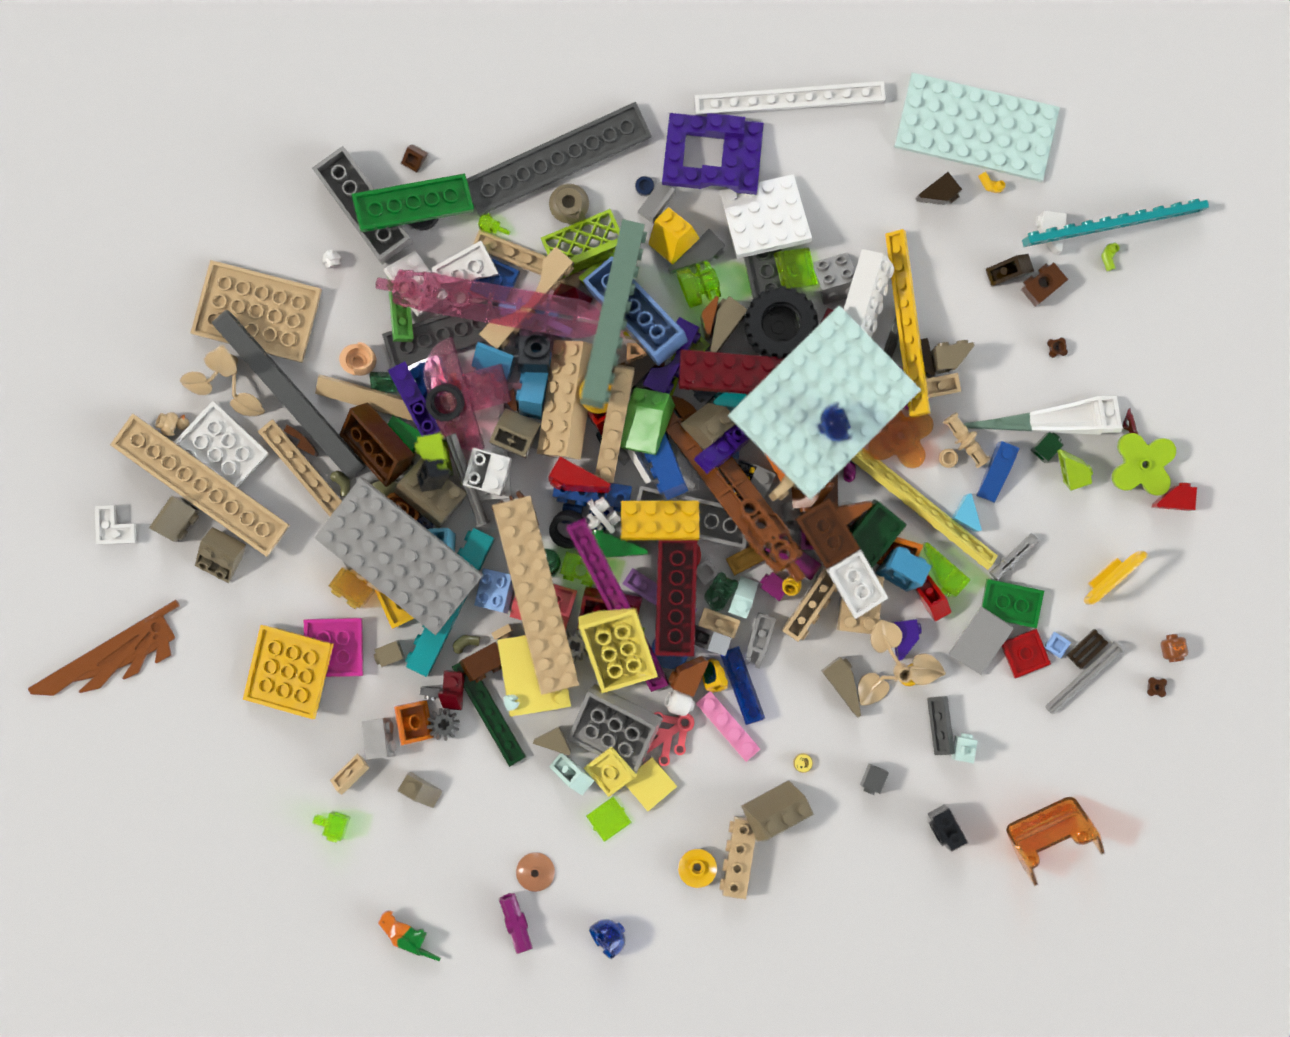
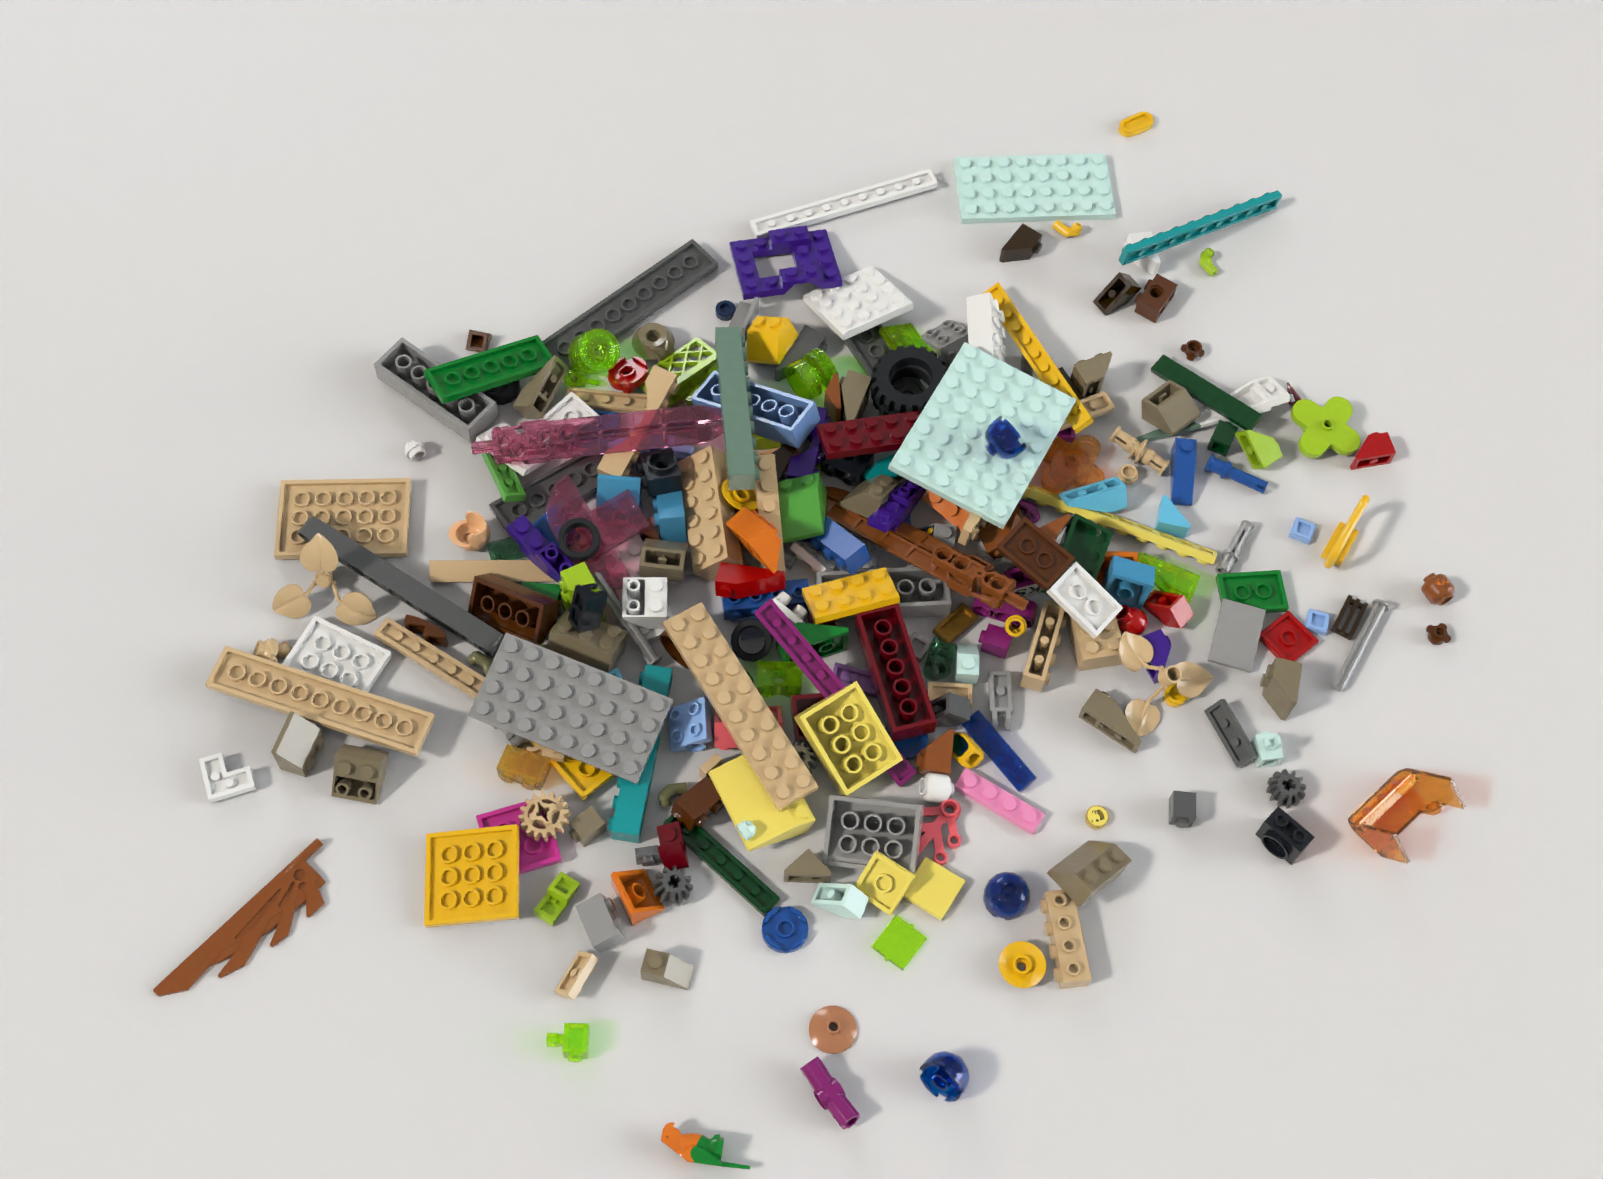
camera: 20 degrees left, 25 degrees down
(351, 705) = (557, 898): none -> lime slope
(356, 647) = (554, 810): none -> tan gear
(454, 231) = (540, 390): none -> dark tan slope
(505, 199) = (586, 359): none -> clear neon green wheel
(522, 782) = (784, 929): none -> blue tile
(540, 242) = (636, 376): none -> red plate
(592, 447) = (757, 537): none -> orange slope
(705, 807) = (1006, 895): none -> clear blue cylinder
(897, 602) = (1132, 620): none -> red piece
(909, 478) = (1101, 496): none -> medium azure slope
(966, 794) = (1293, 784): none -> dark grey gear
(999, 701) = (1281, 686): none -> dark tan slope
(1010, 407) = (1169, 408): none -> dark tan slope
(1037, 480) = (1226, 469): none -> blue pin
(1049, 400) = (1207, 393): none -> dark green tile
(1081, 555) = (1302, 530): none -> light blue tile
(1103, 79) = (1136, 124): none -> yellow tile

